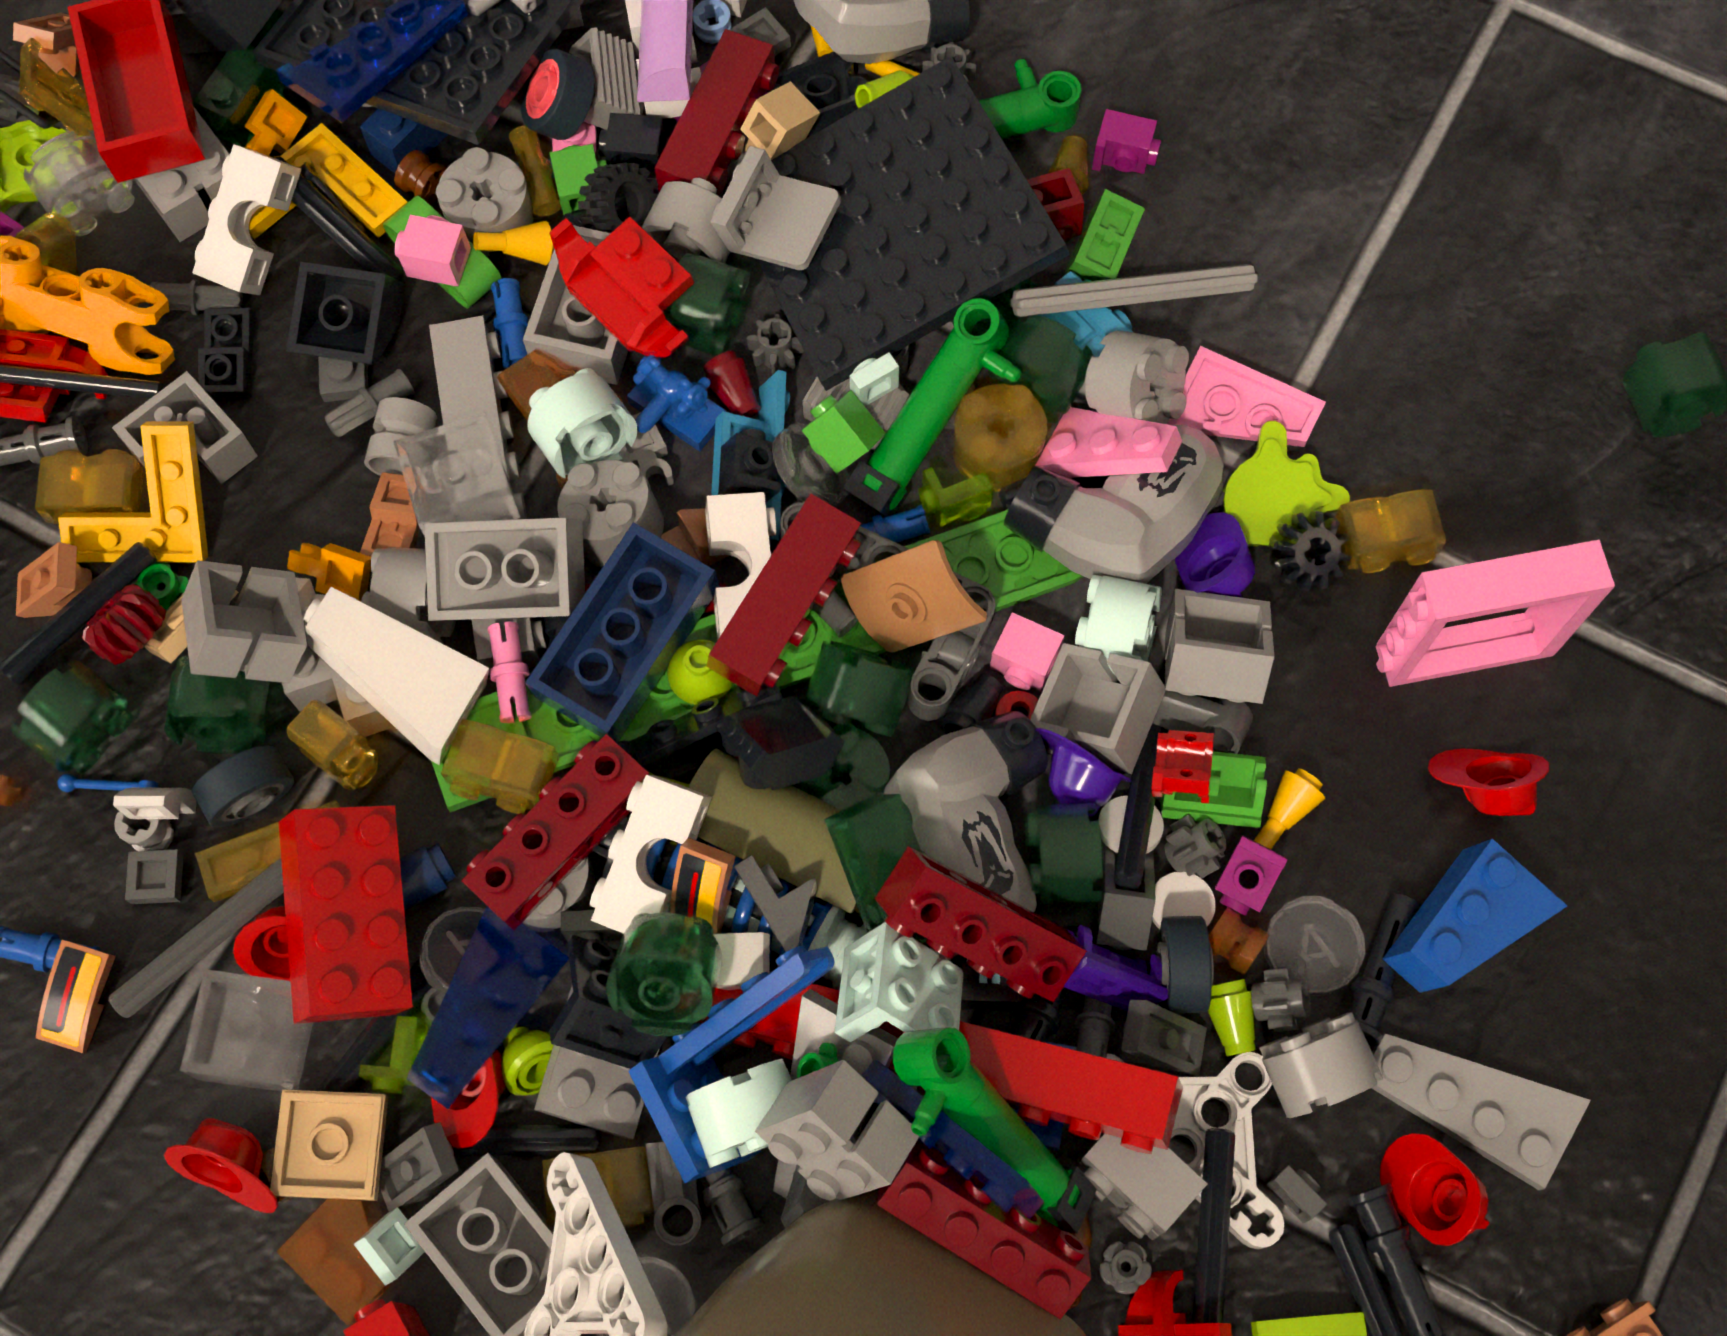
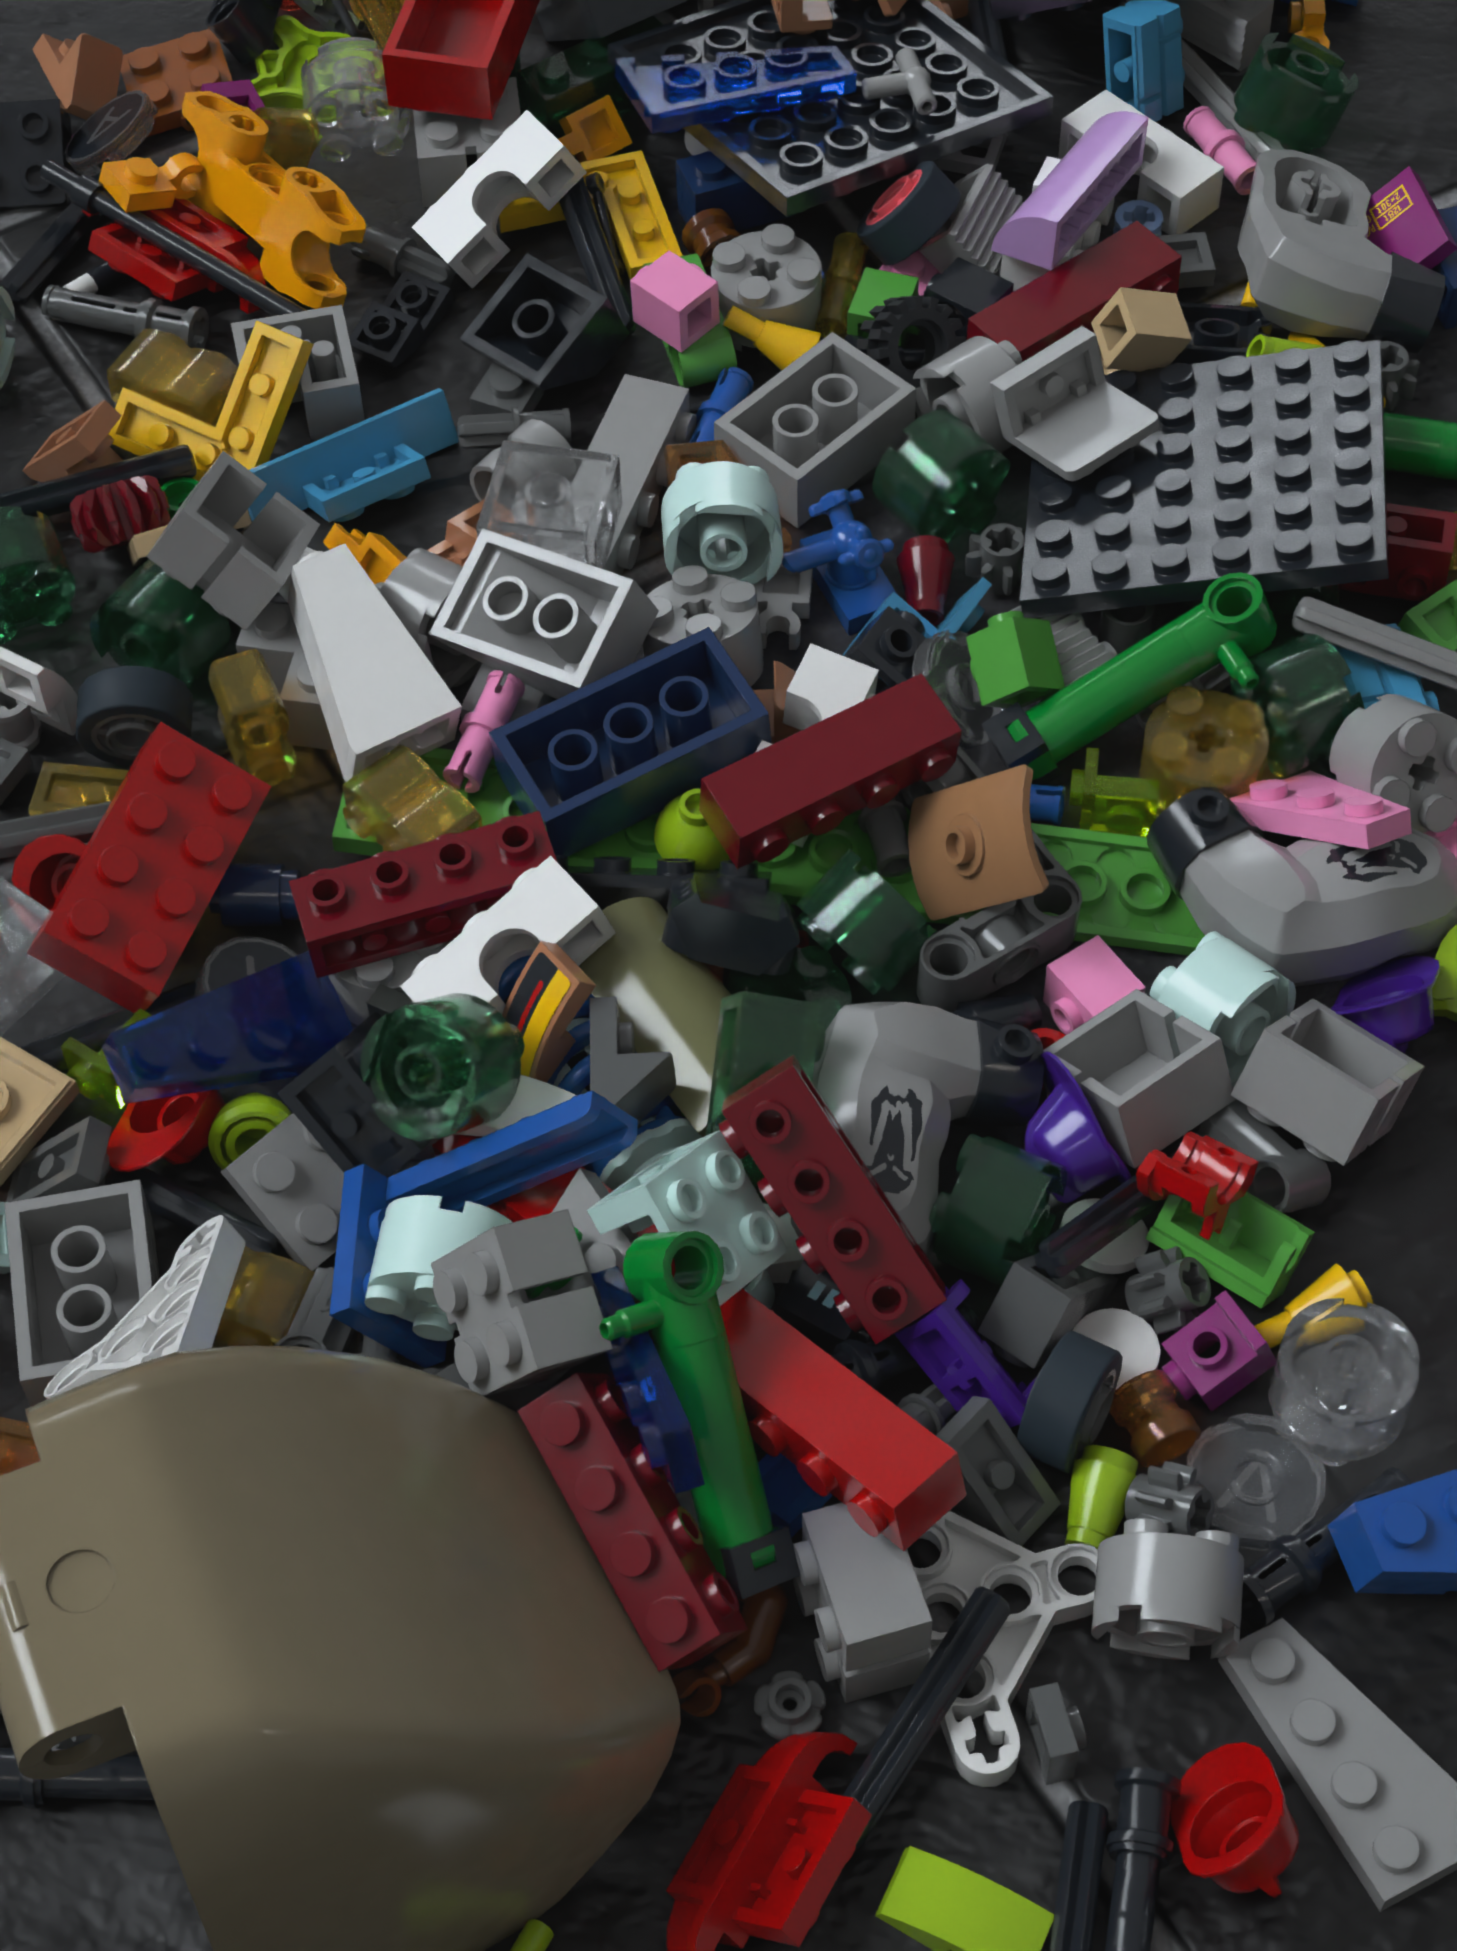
camera: 30 degrees right, 15 degrees down
(272, 493) = (362, 462): none -> dark azure bracket
(624, 284) = (857, 406): red plate -> none
(874, 378) = (1083, 623): light aqua plate -> none
(1365, 853) = (1344, 1379): none -> clear brick

